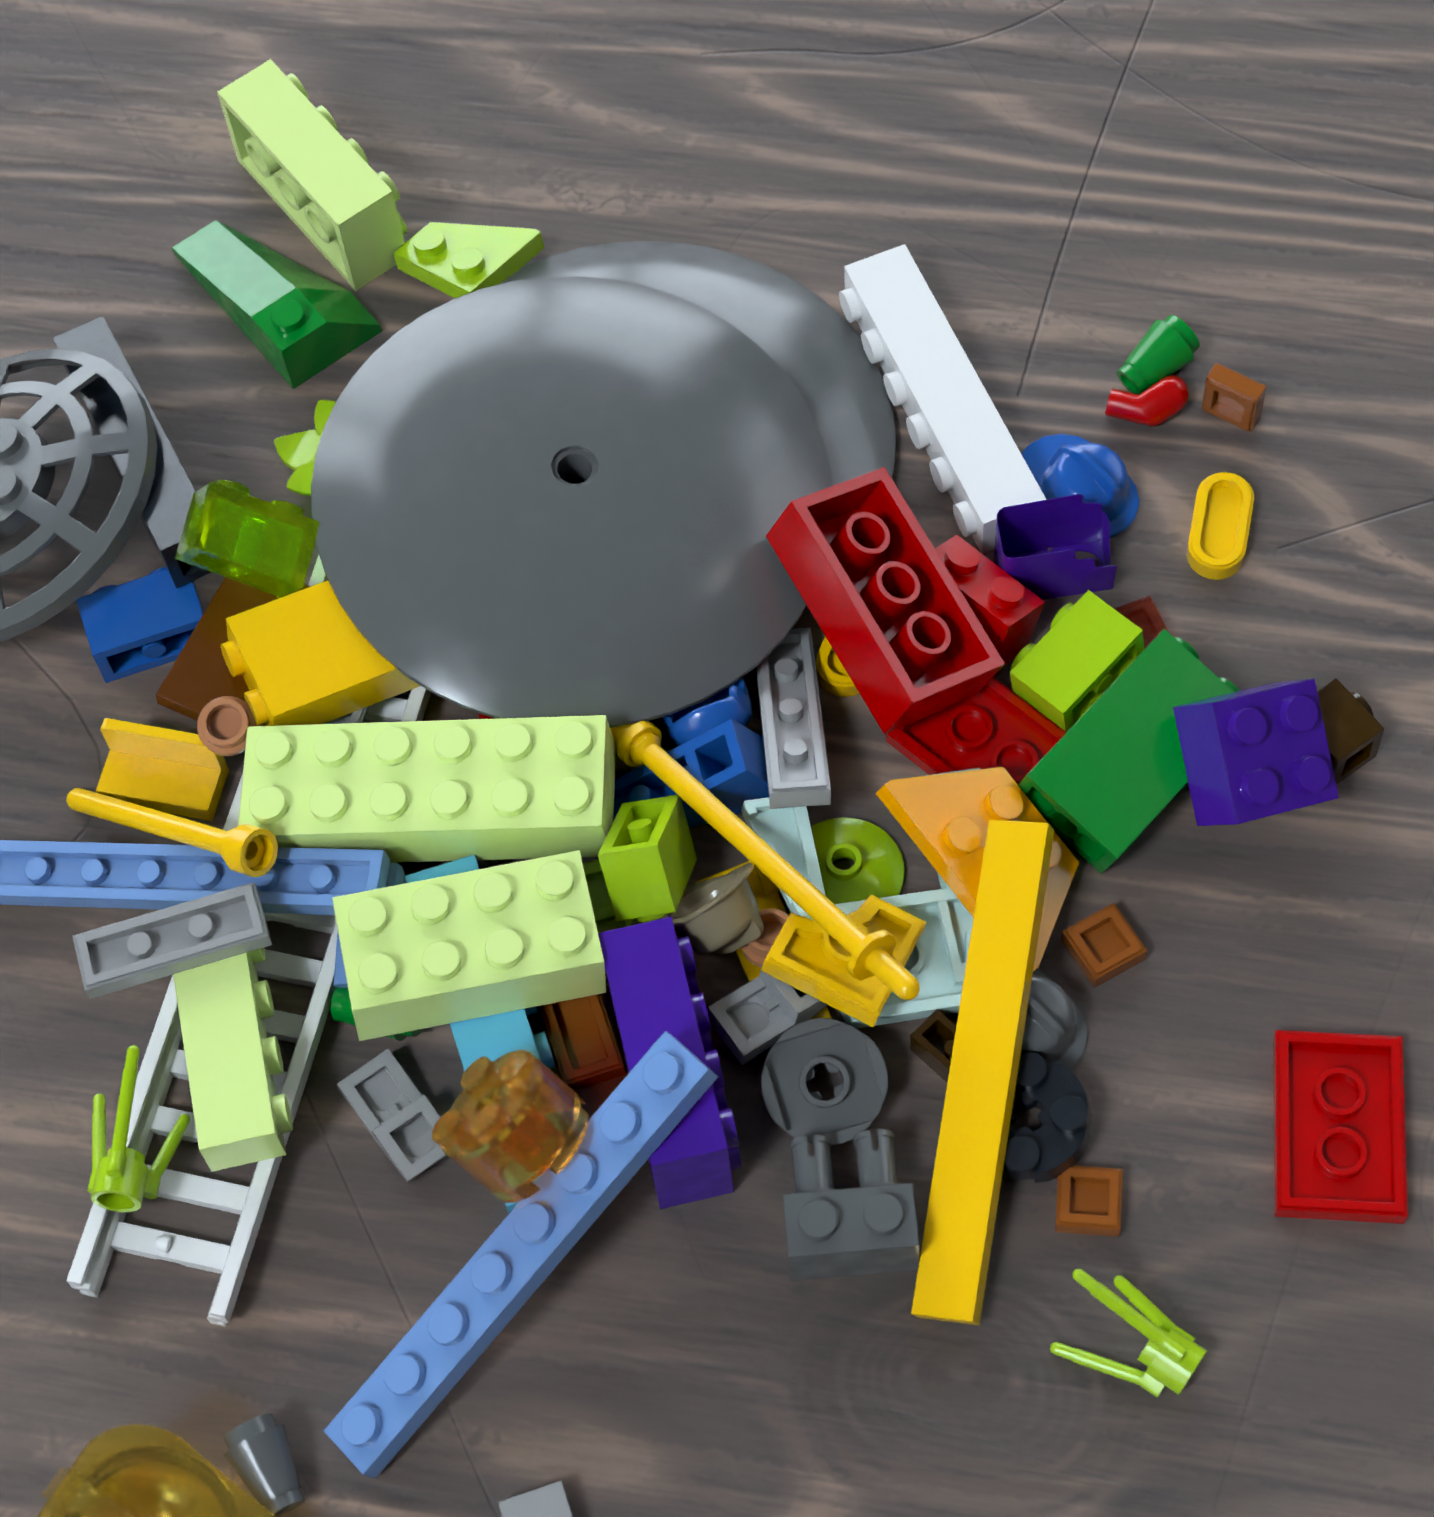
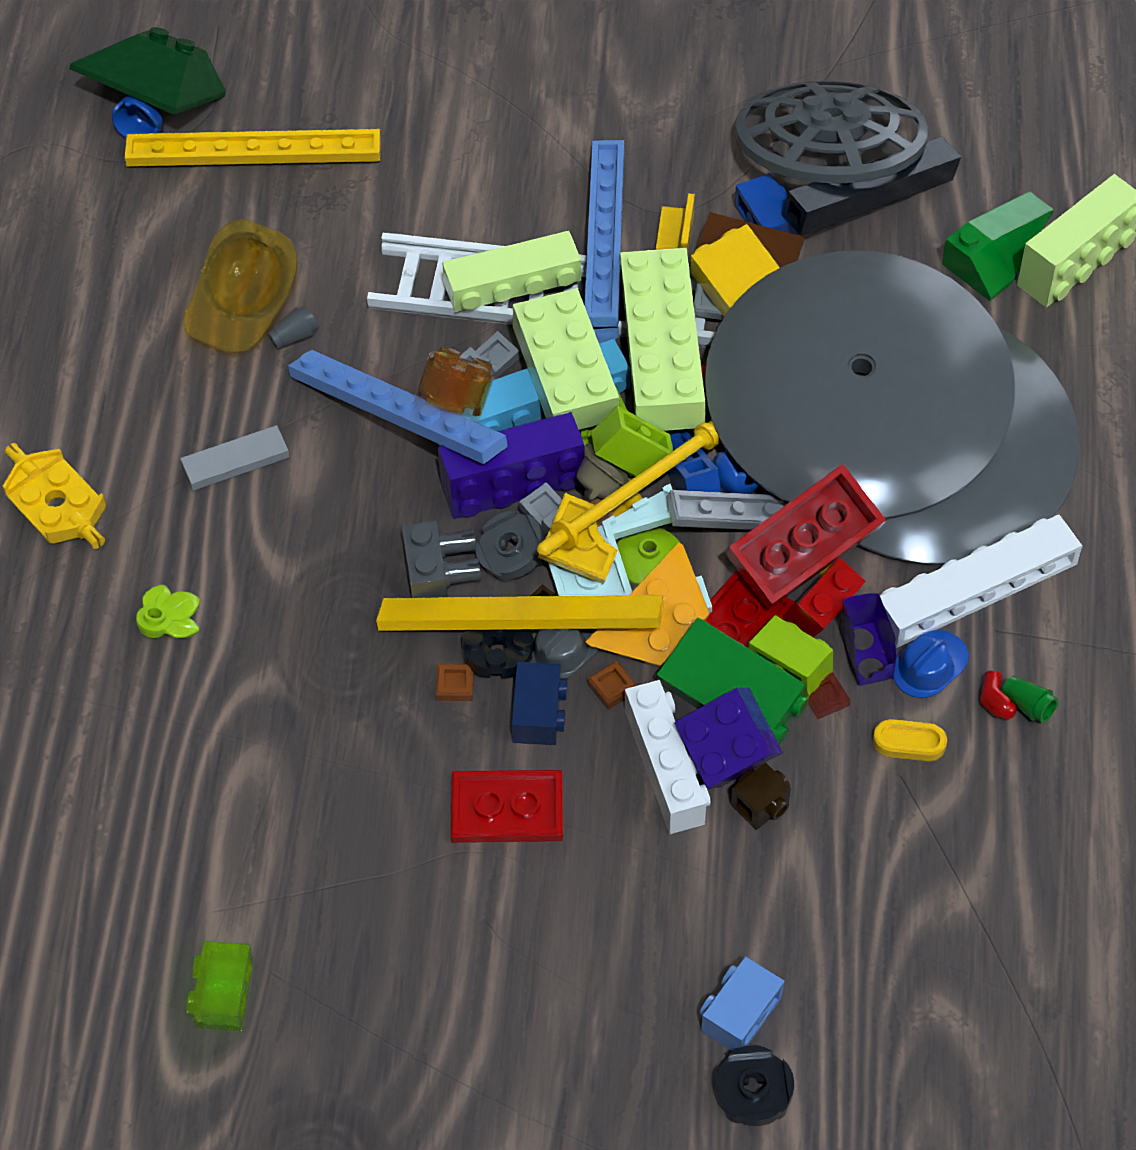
camera: 80 degrees right, 5 degrees down
(121, 1176) = (434, 239): lime plant -> none
(171, 940) = (556, 232): light grey tile -> none
(224, 725) = (691, 239): nougat plate -> none
(243, 848) = (610, 253): yellow piece -> none
(248, 538) = (799, 225): clear neon green brick -> none
(467, 256) = (1043, 331): lime wing -> none
(1151, 1058) = (537, 702): none -> dark blue brick
(1168, 1354) = (362, 715): lime plant -> none
(1233, 397) = (1001, 739): dark orange tile -> none
(1262, 863) = (665, 757): none -> white brick

